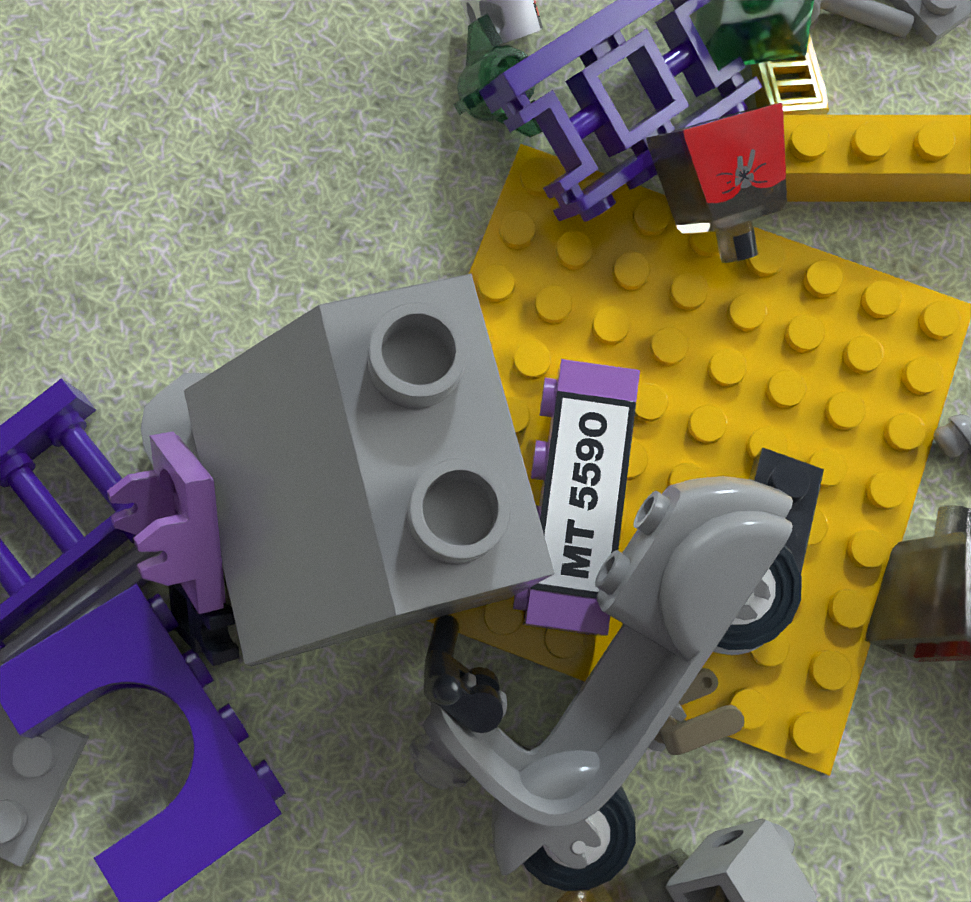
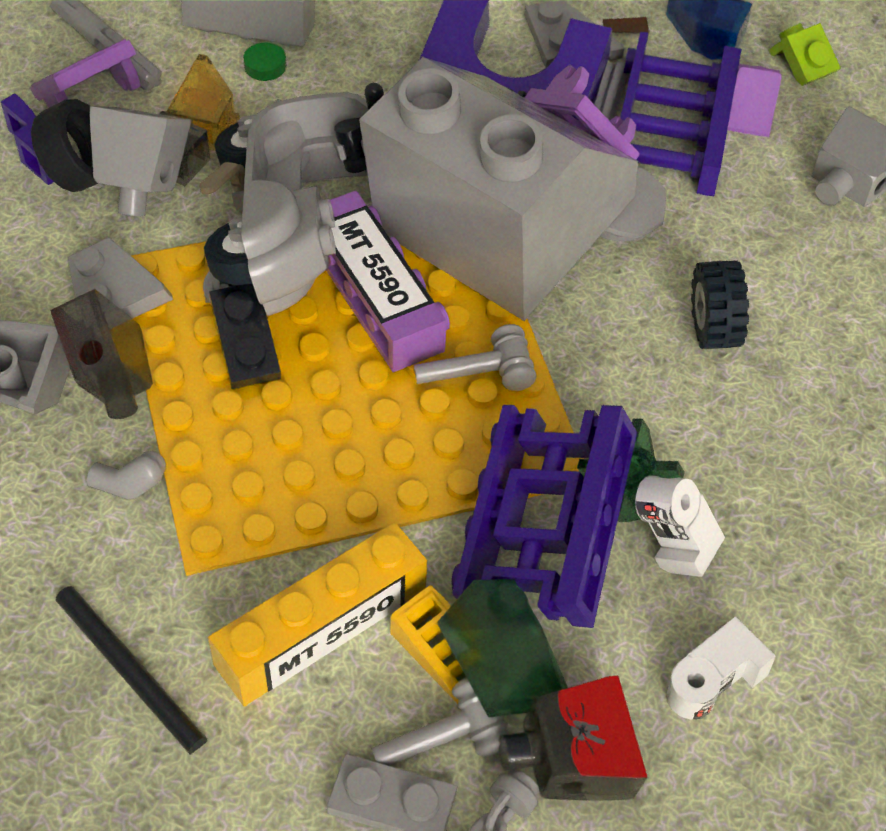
camera: 145 degrees right, 25 degrees down
(237, 208) = (720, 304): none -> black wheel
(508, 303) = (508, 356): none -> light grey piece
(724, 175) = (435, 493): torso -> none
(869, 723) = (116, 277): none -> light grey wing

